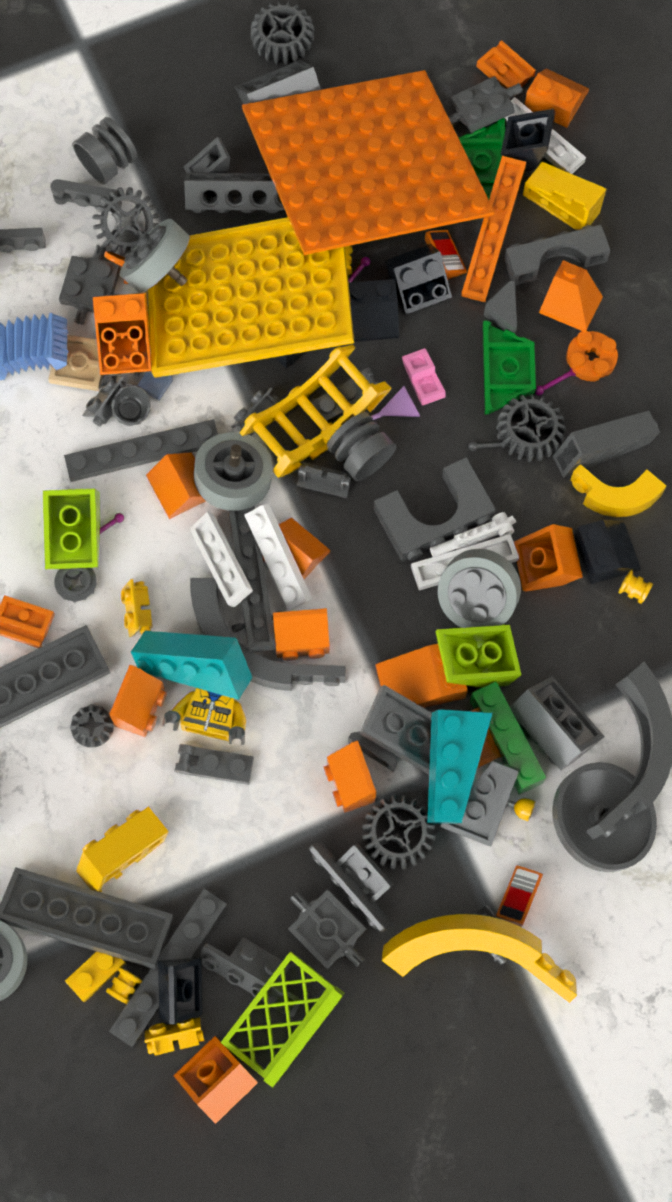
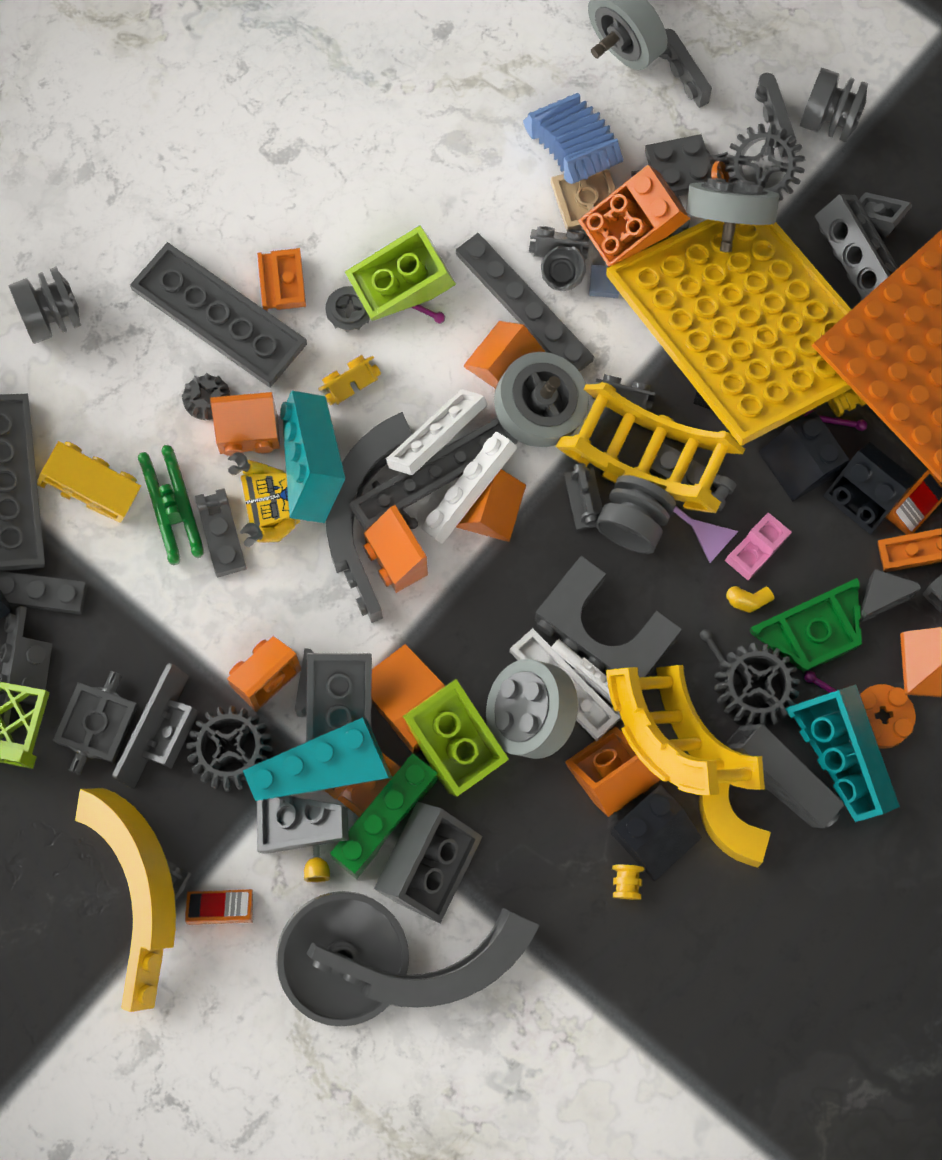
camera: 65 degrees right, 0 degrees up
(174, 793) = (170, 505): none -> green piece
(462, 404) = (748, 601): none -> yellow arm
(571, 494) = (709, 759): none -> yellow fence
(609, 389) = (847, 750): none -> teal wedge

